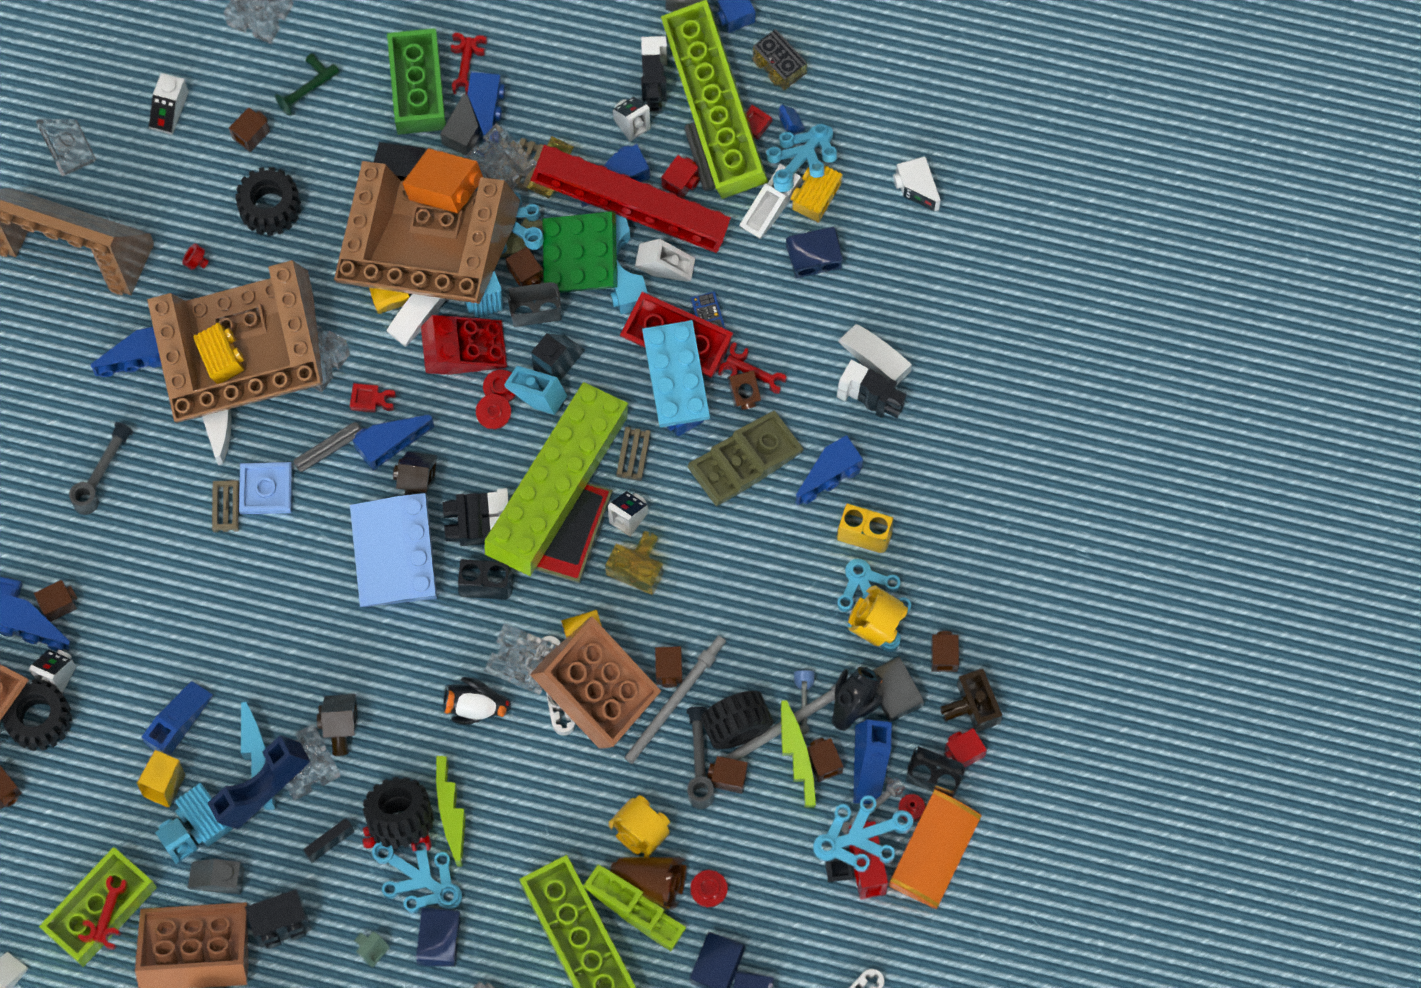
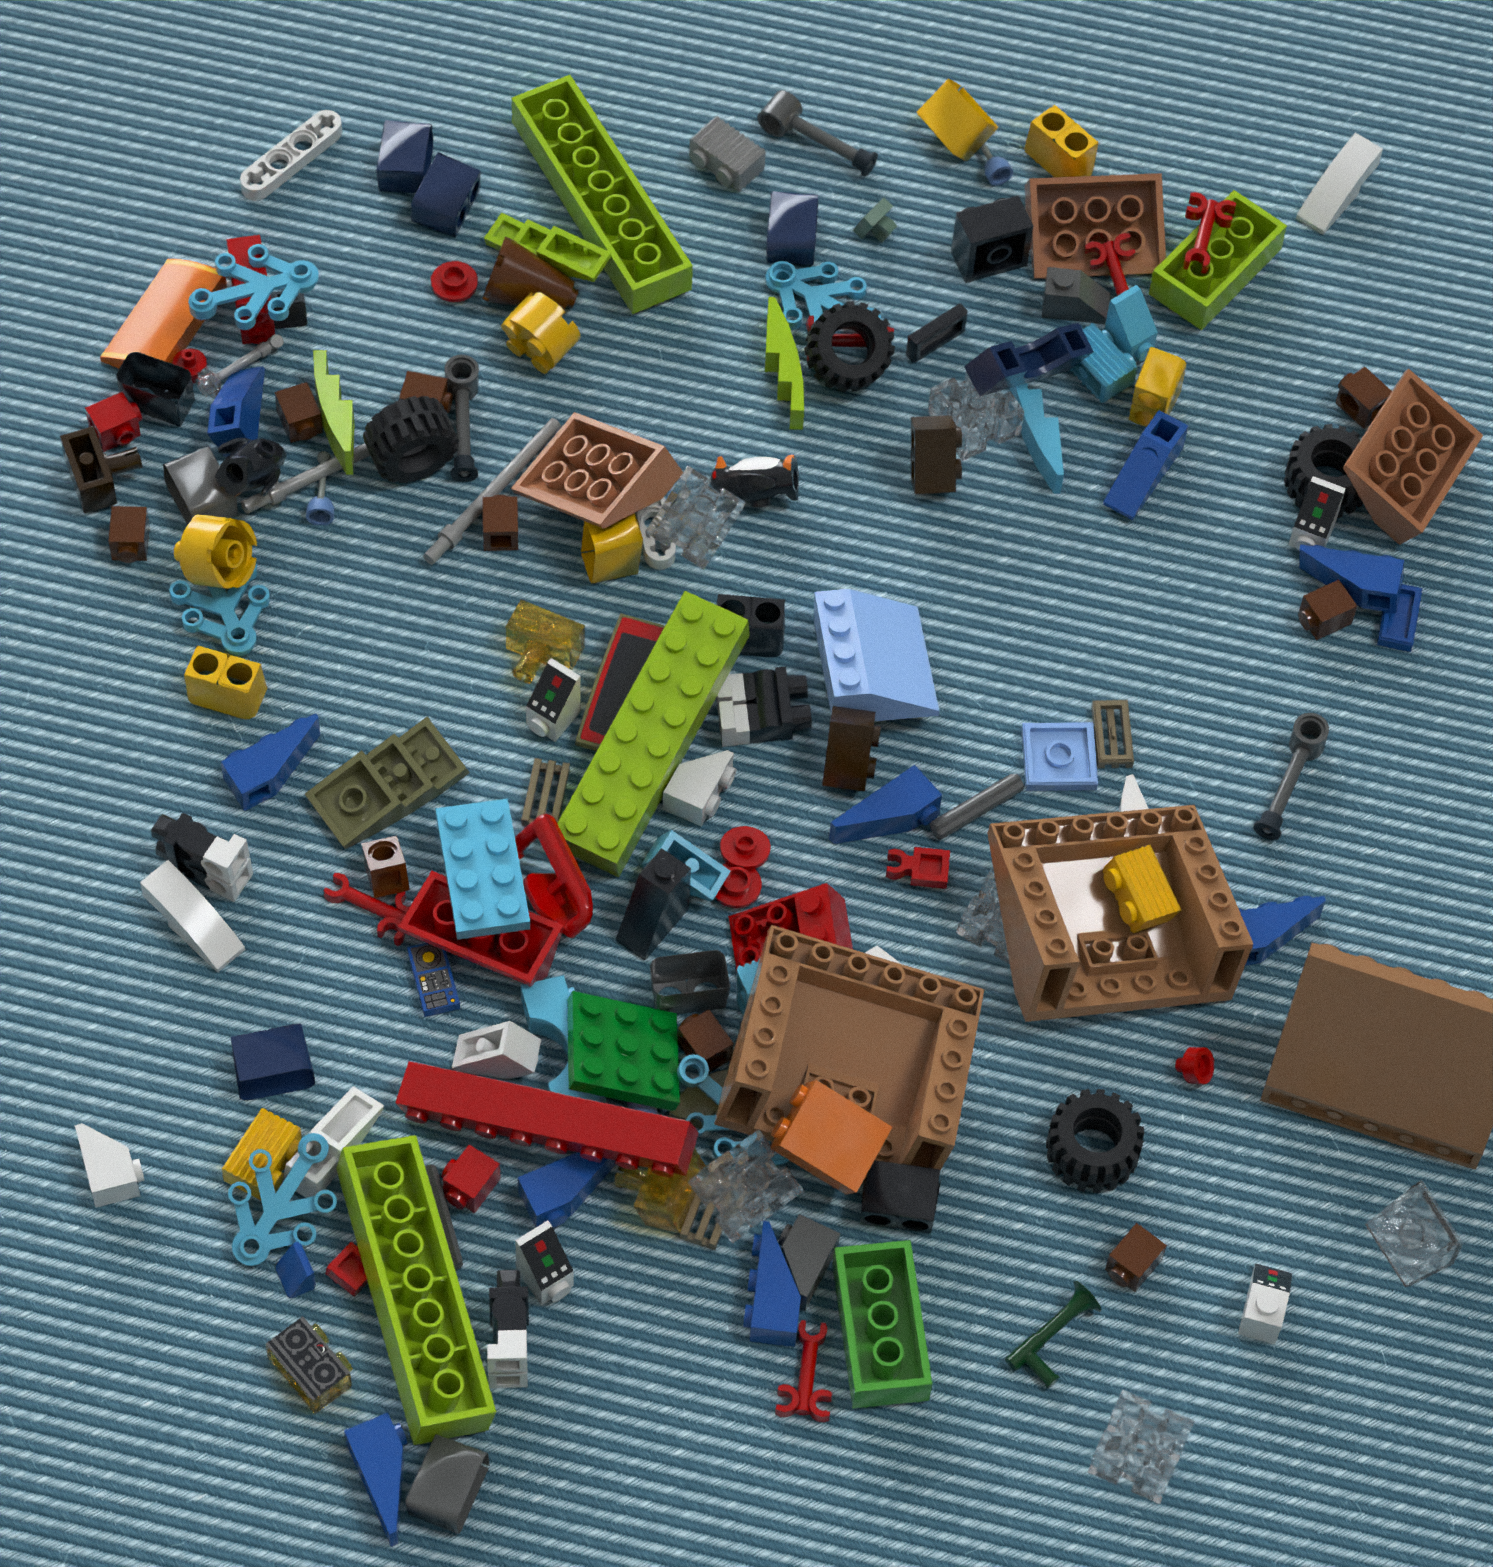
camera: 175 degrees right, 10 degrees down
(183, 912) = (1112, 254): none -> red bar
(522, 454) = (697, 785): none -> white slope
(625, 365) = (556, 896): none -> red piece

